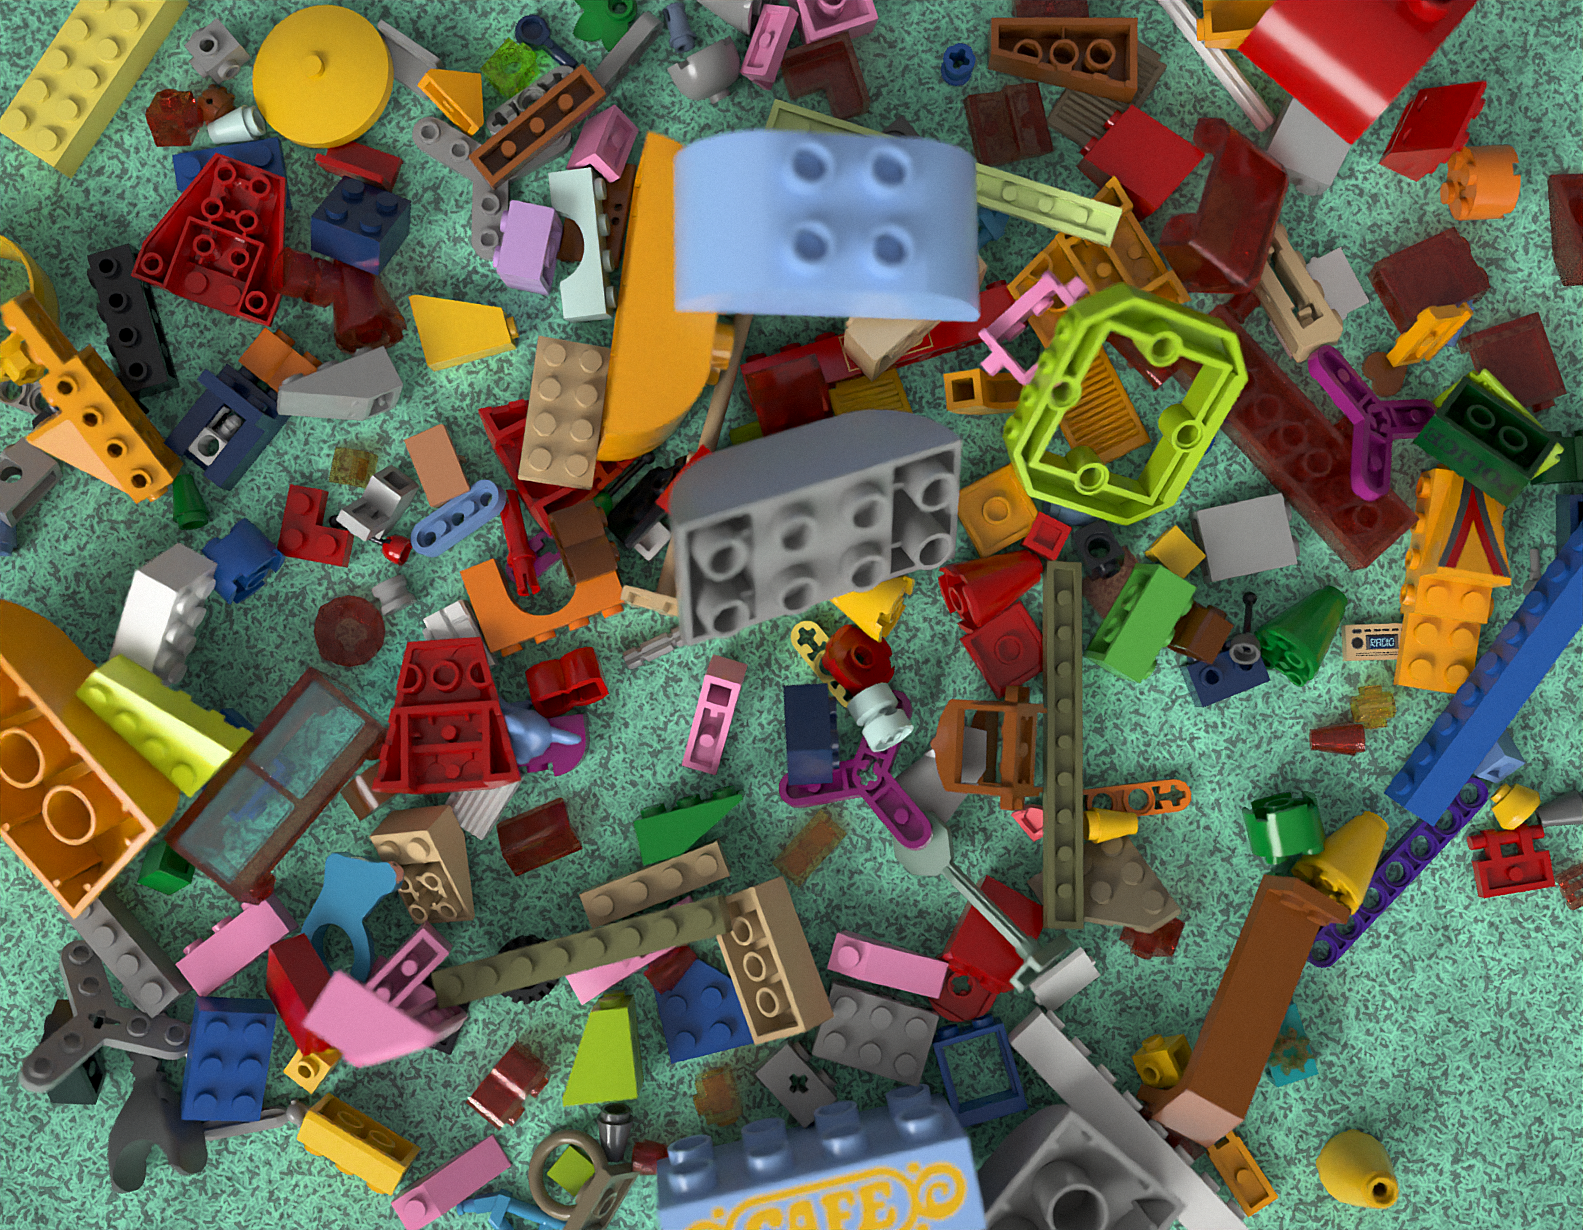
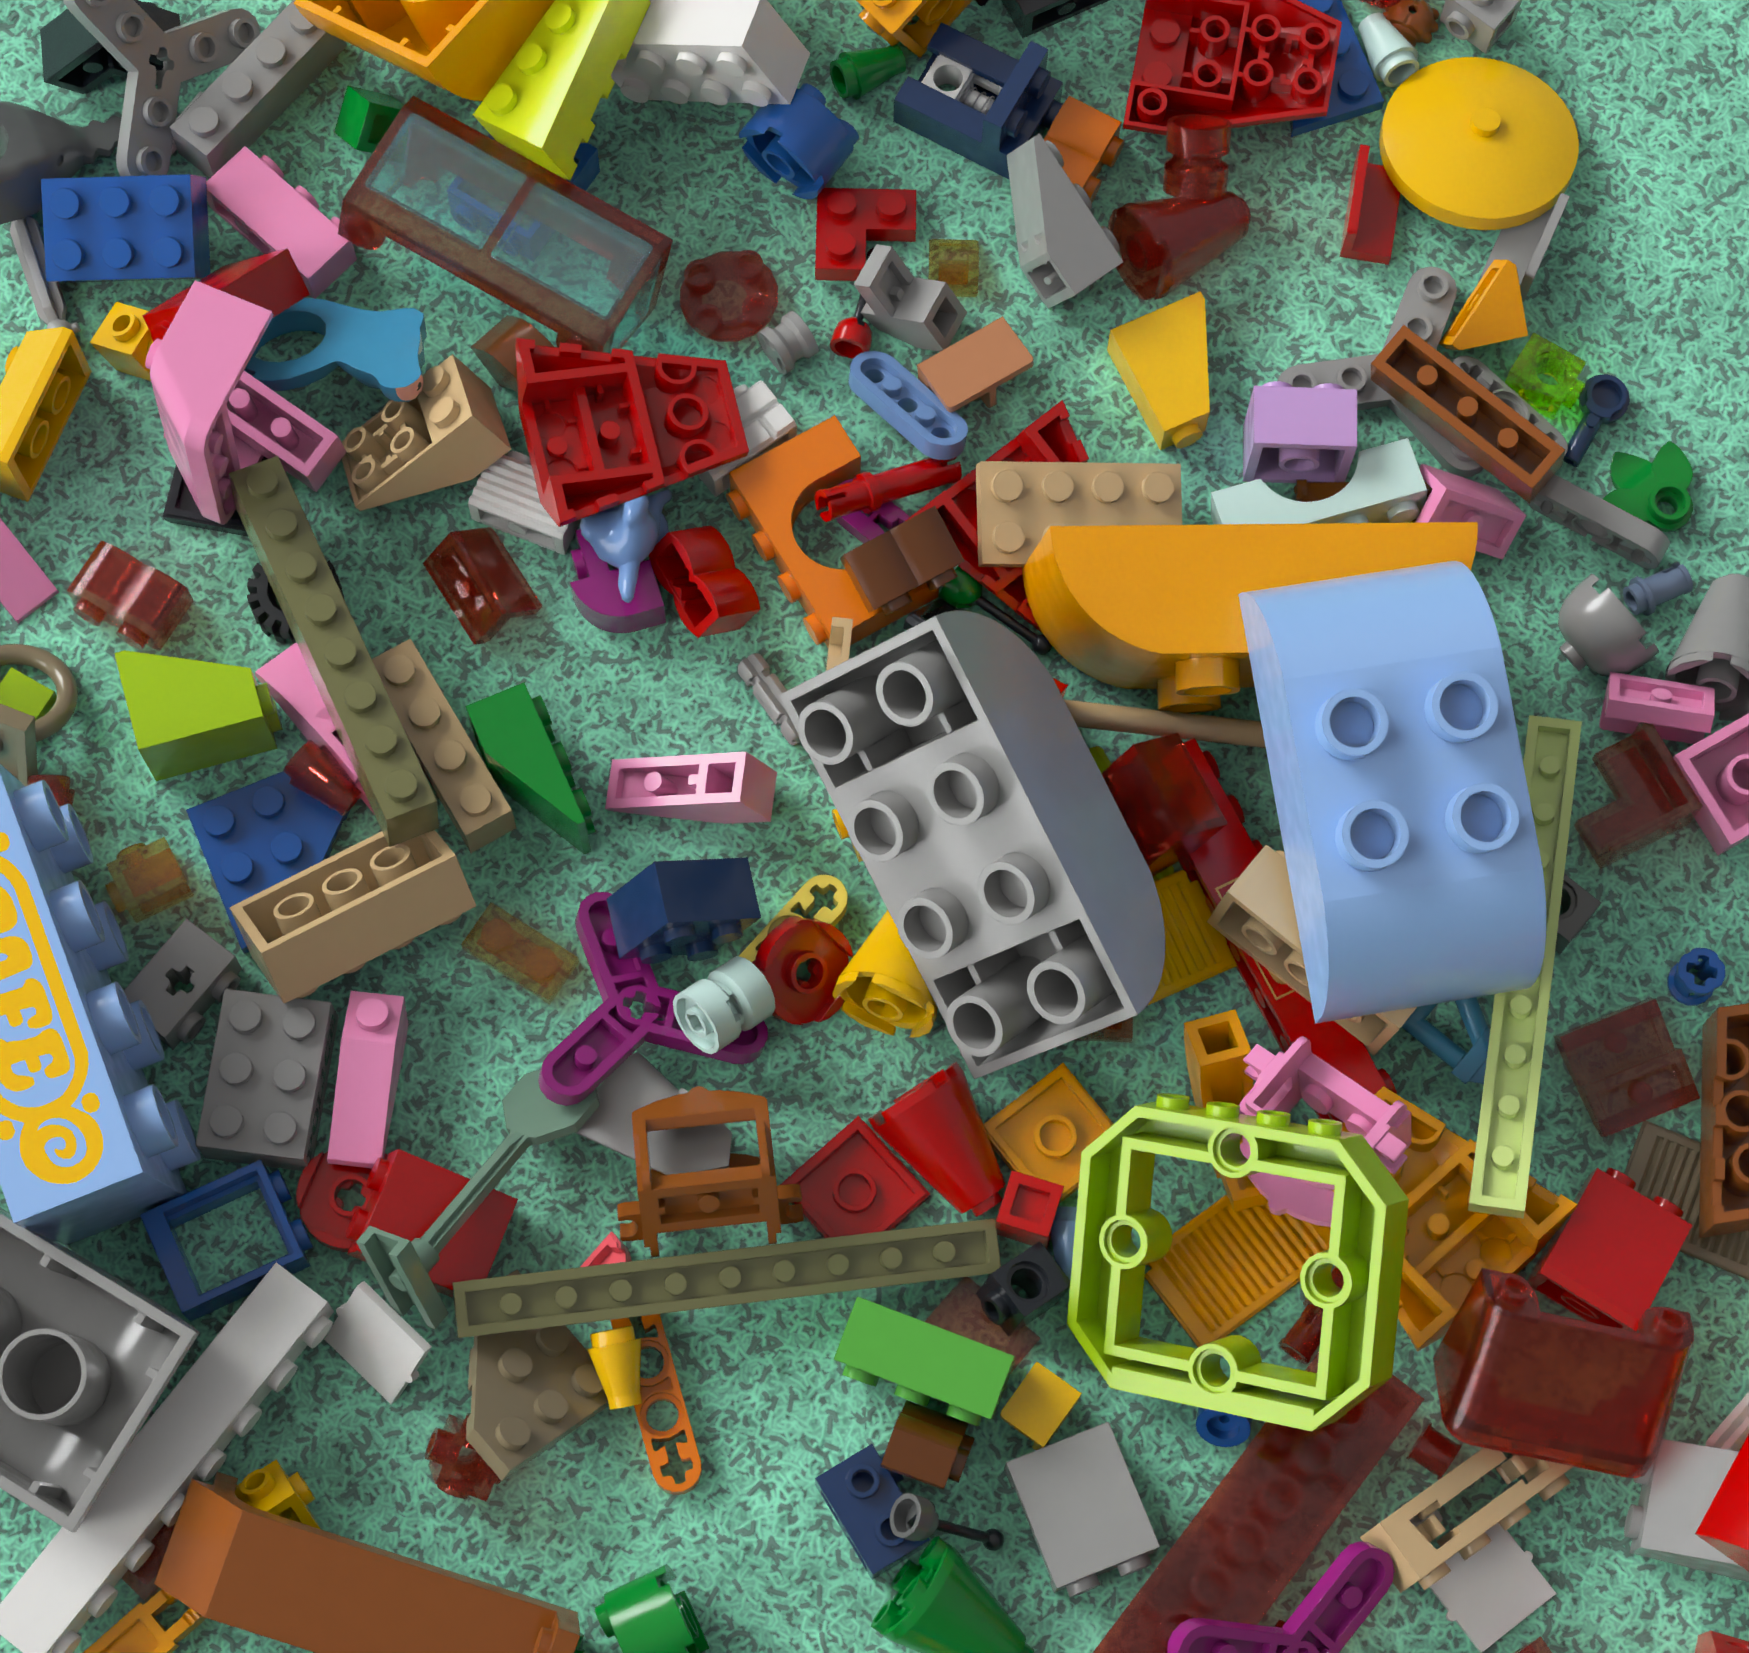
camera: 75 degrees right, 15 degrees down
(360, 225) = (1284, 216): dark blue brick -> none
(614, 1130) = (81, 747): dark grey cone -> none

